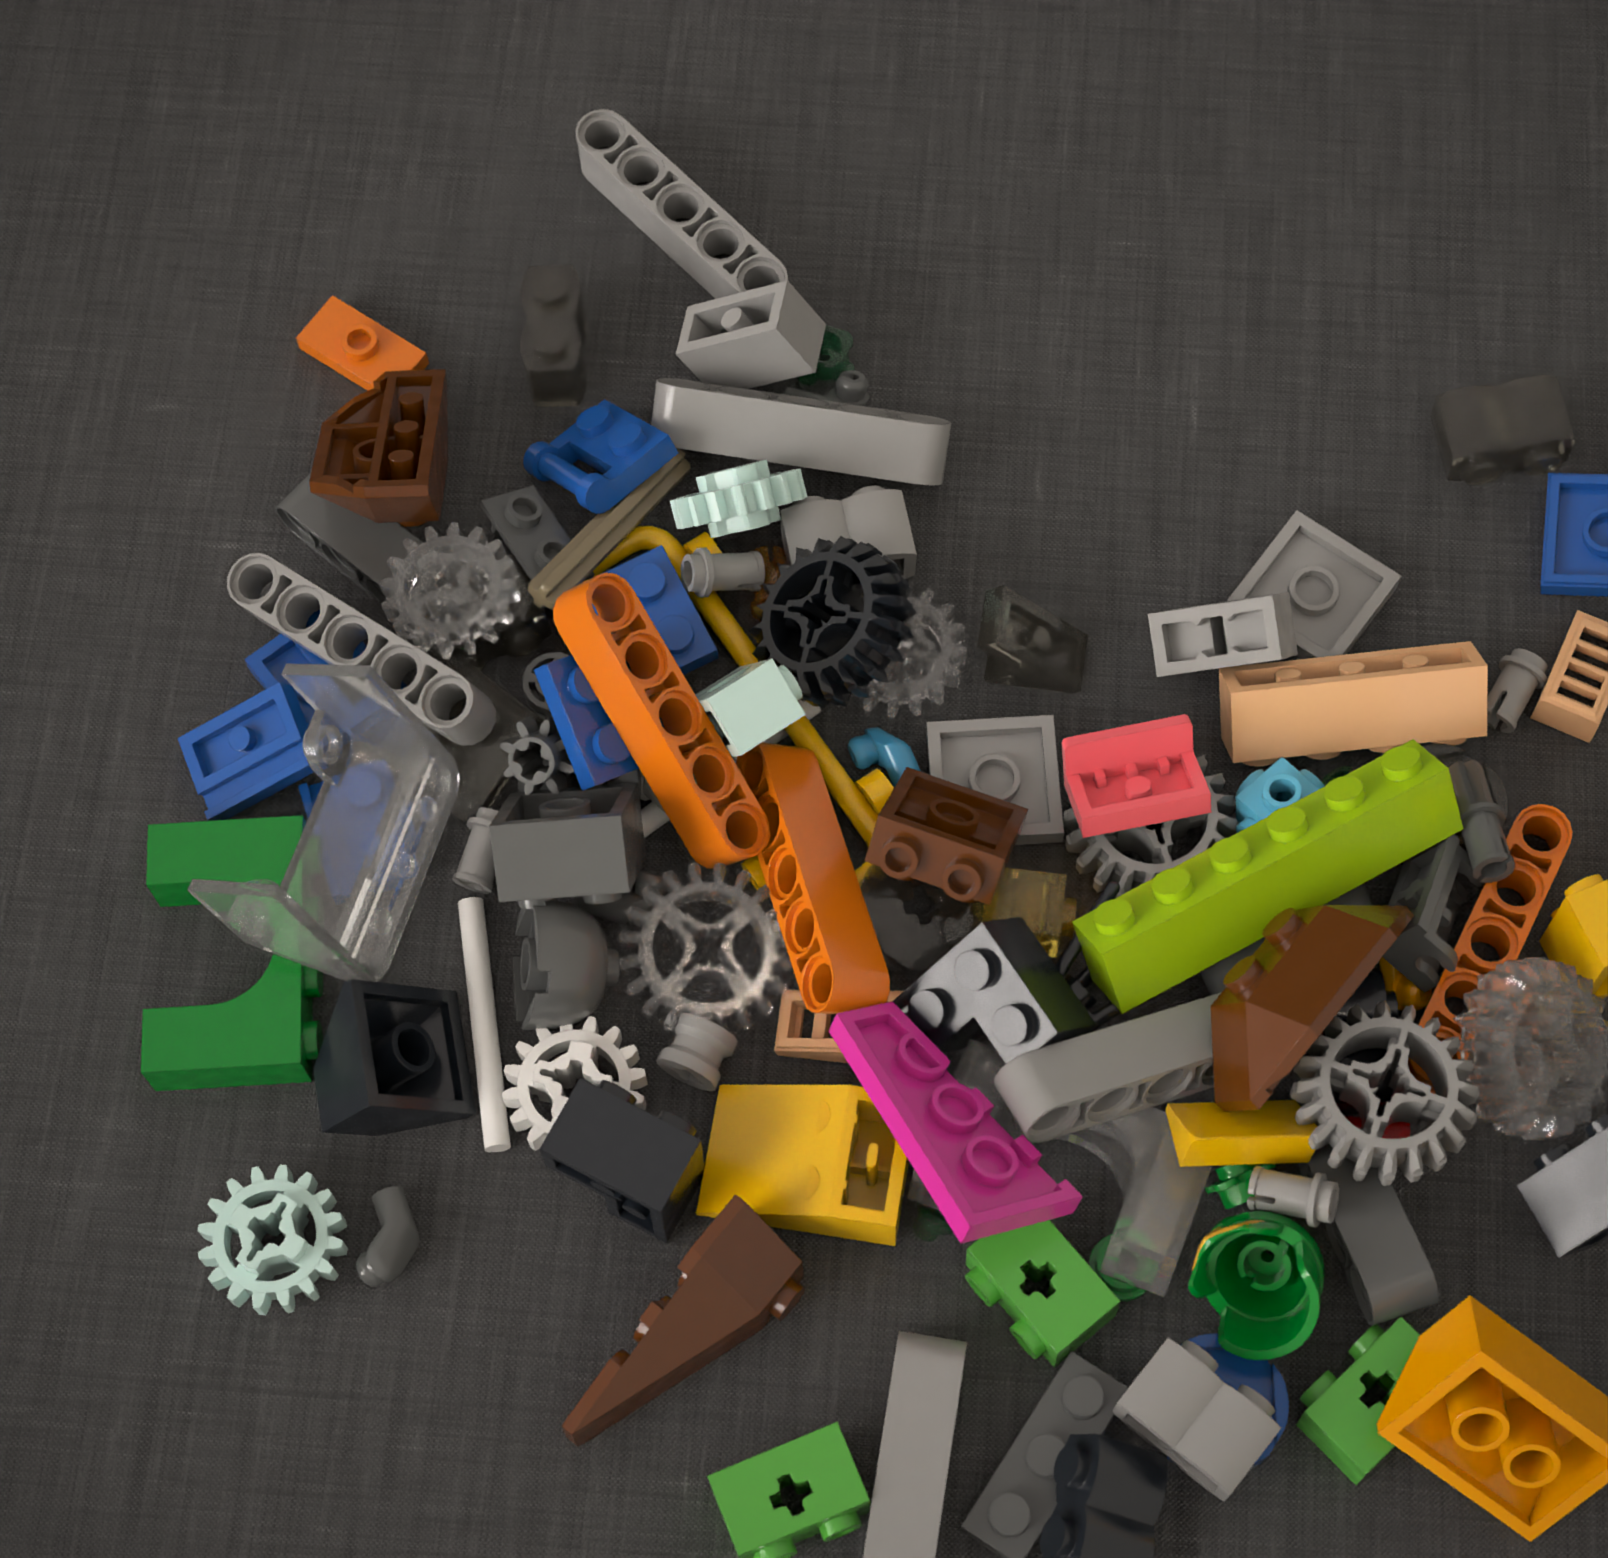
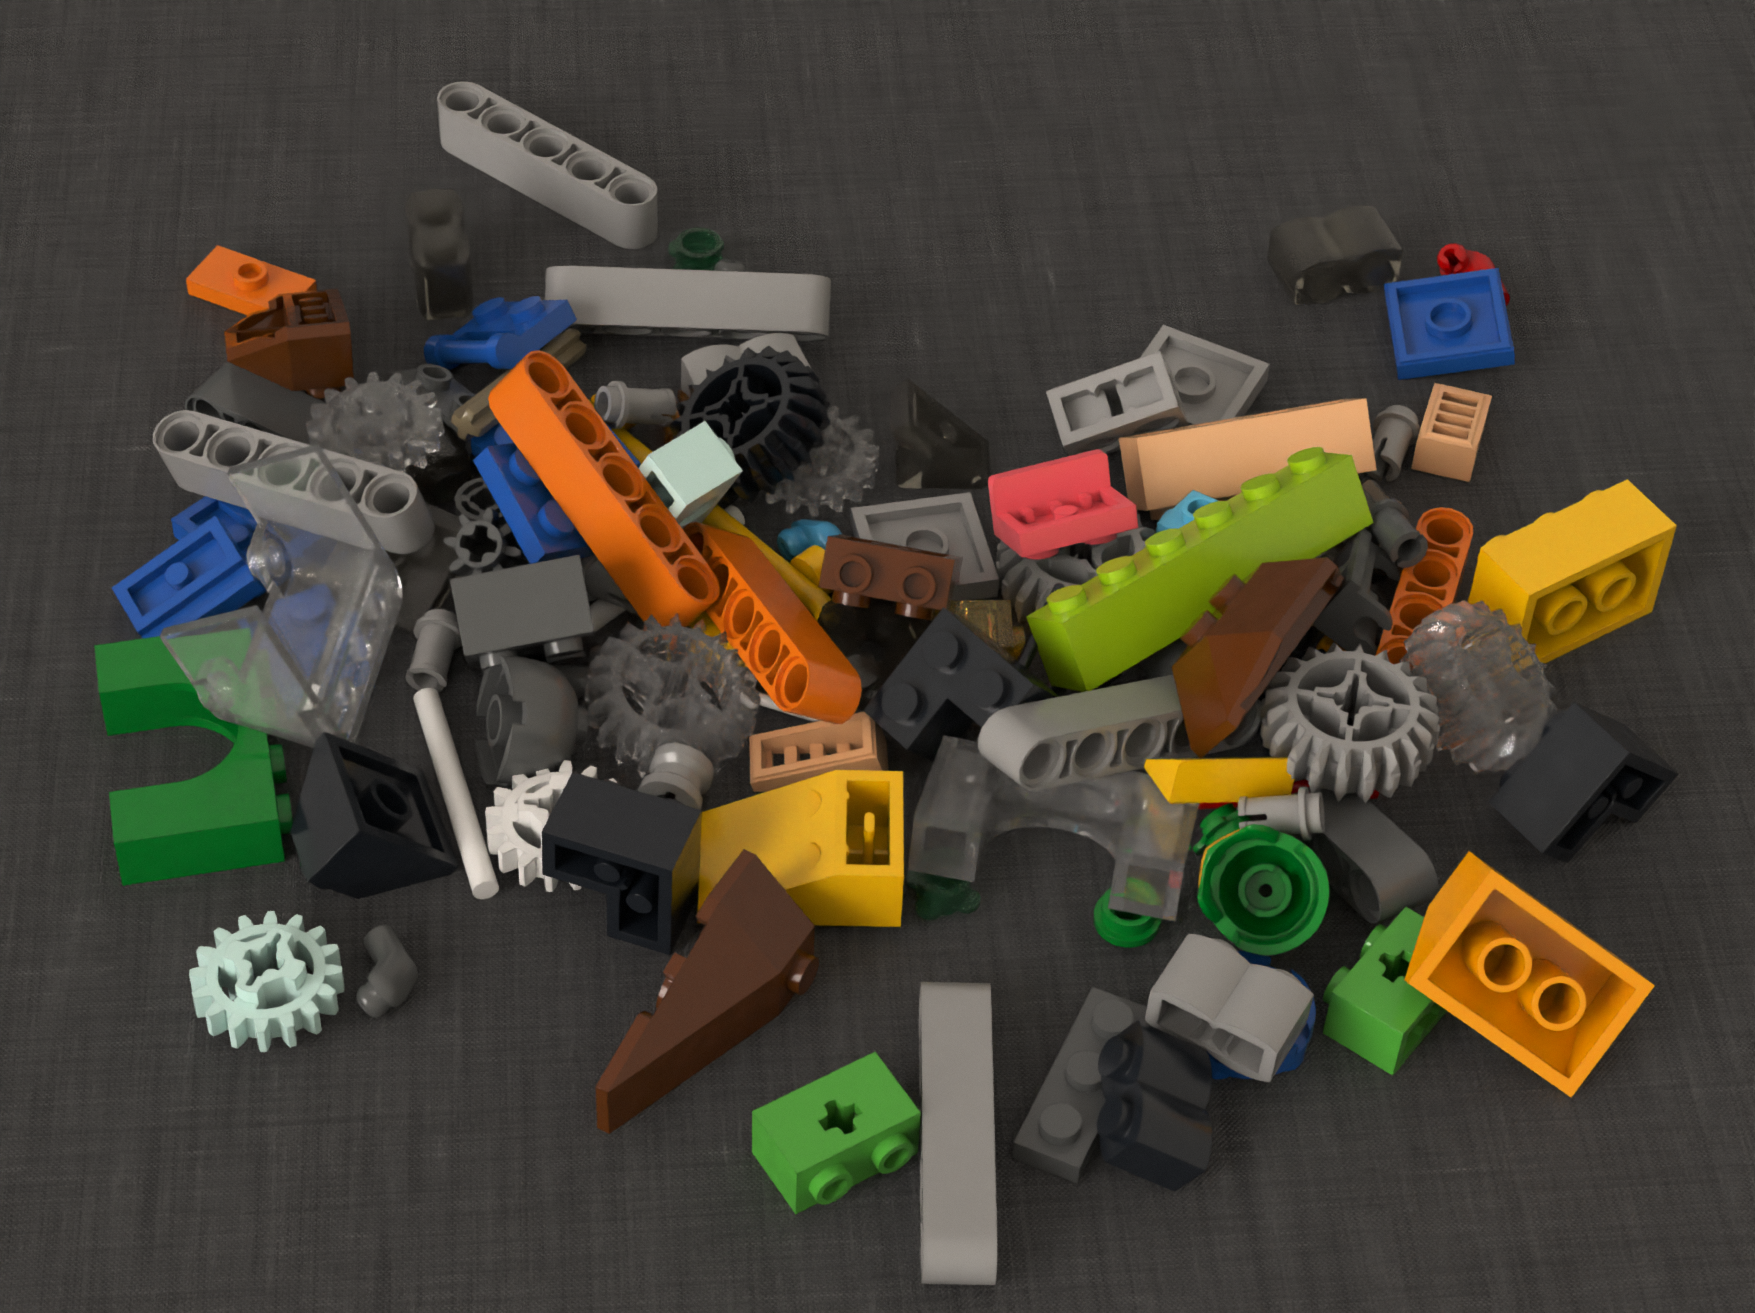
camera: 15 degrees left, 20 degrees down
(738, 498) = (640, 347): light aqua gear -> none
(752, 337) = (634, 226): light grey brick -> none
(946, 1129) = (940, 778): dark pink wing -> none
(1076, 1295) = (1051, 931): bright green brick -> none

